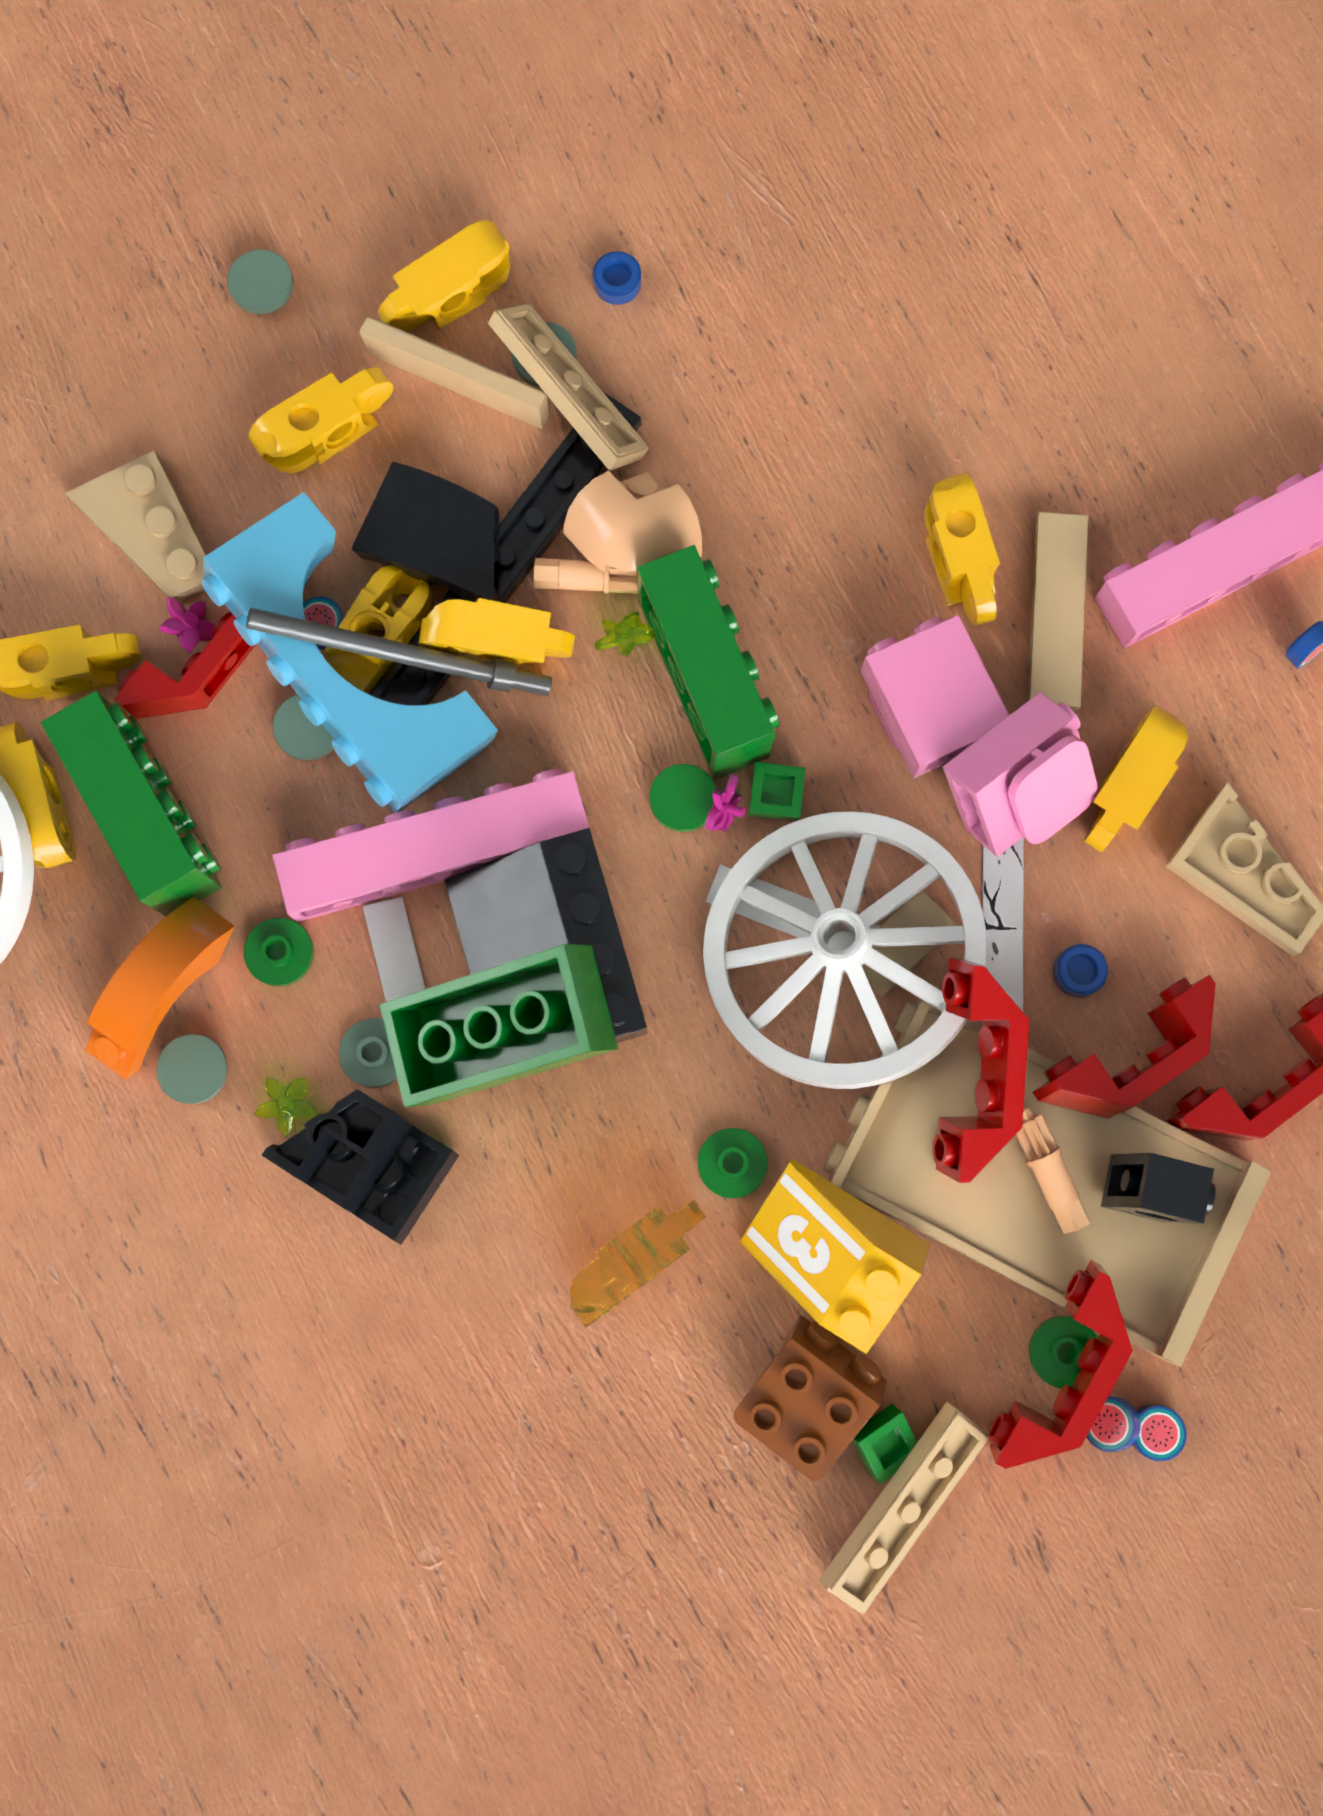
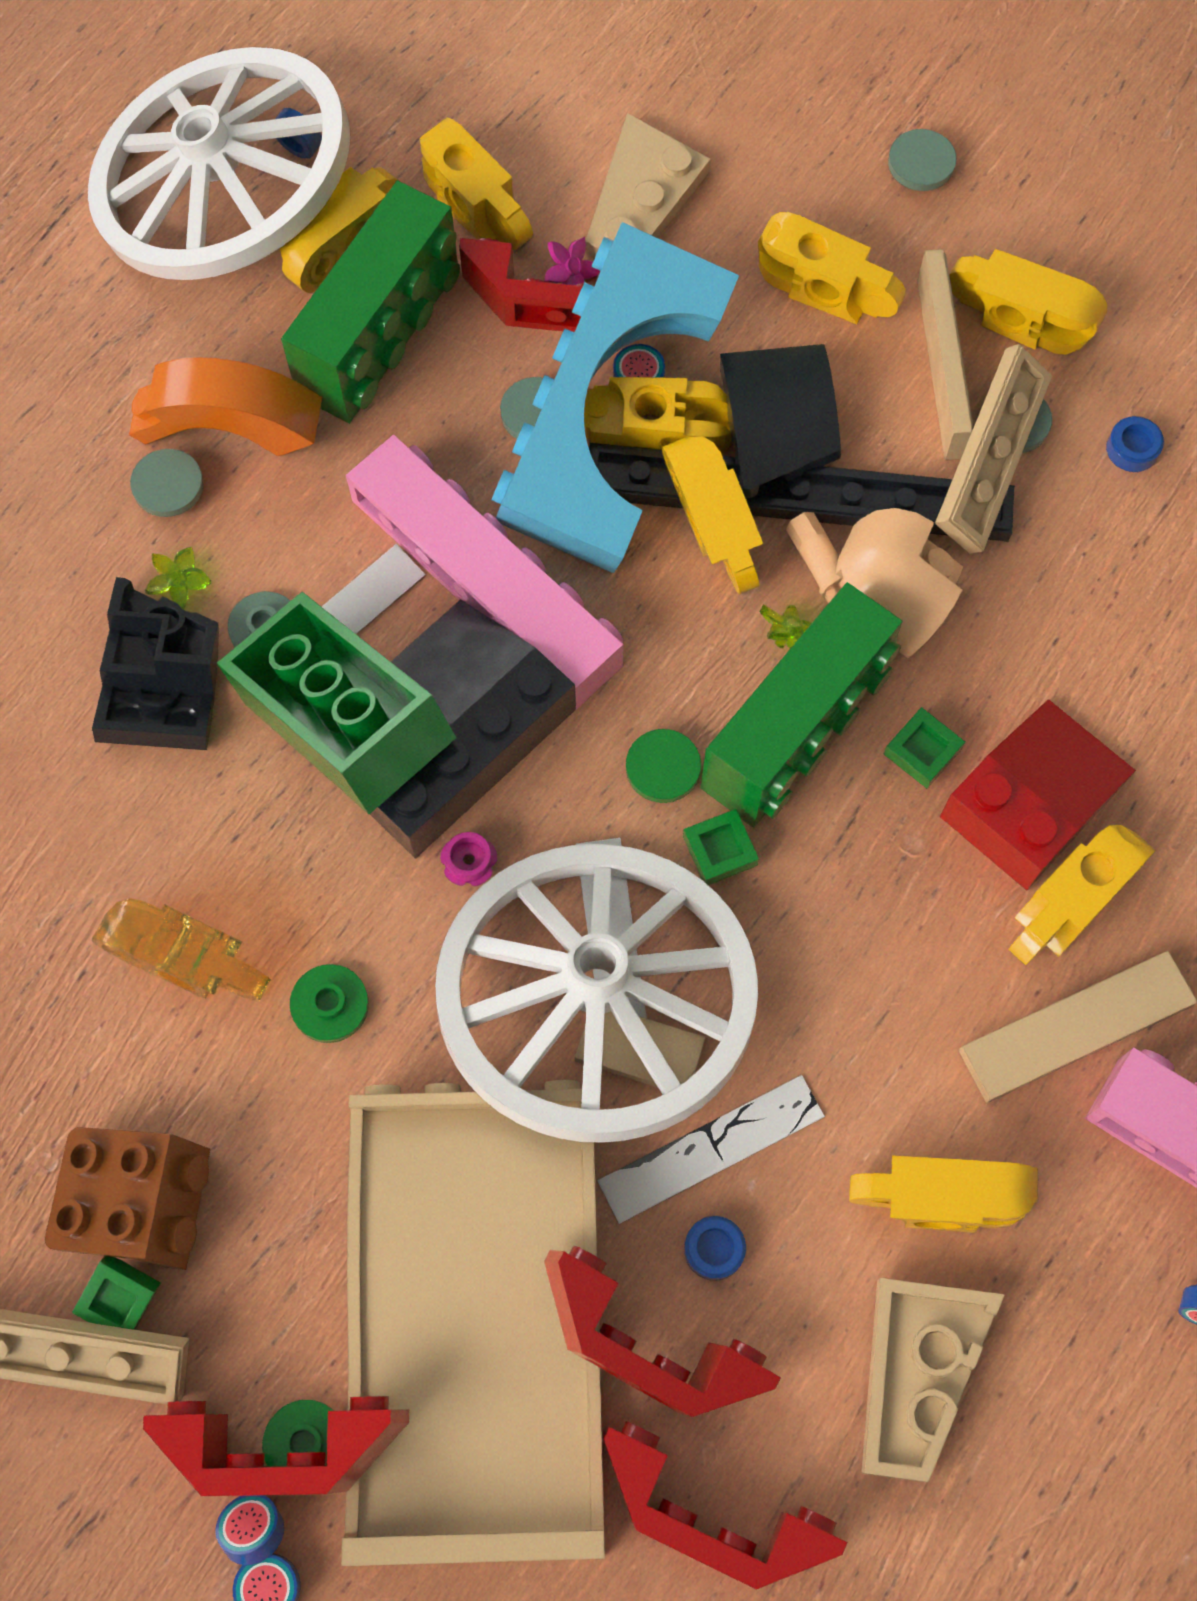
camera: 60 degrees right, 10 degrees down
(278, 952) = (314, 498): green piece -> none
(498, 674) = (679, 538): dark grey bar -> none
(690, 991) = (465, 845): none -> dark pink plate
(725, 807) = (674, 805): dark pink plant -> none
(782, 591) = (924, 747): none -> green plate
(835, 1254) = (280, 1142): yellow slope -> none
(866, 529) = (1035, 793): none -> red slope
(931, 693) = (905, 939): bright pink brick -> none
(971, 1142) = (464, 1209): red slope -> none
(1023, 776) = (876, 1069): bright pink brick -> none
(1051, 1172) = (478, 1313): light nougat piece -> none
(1159, 1188) = (513, 1435): black brick -> none

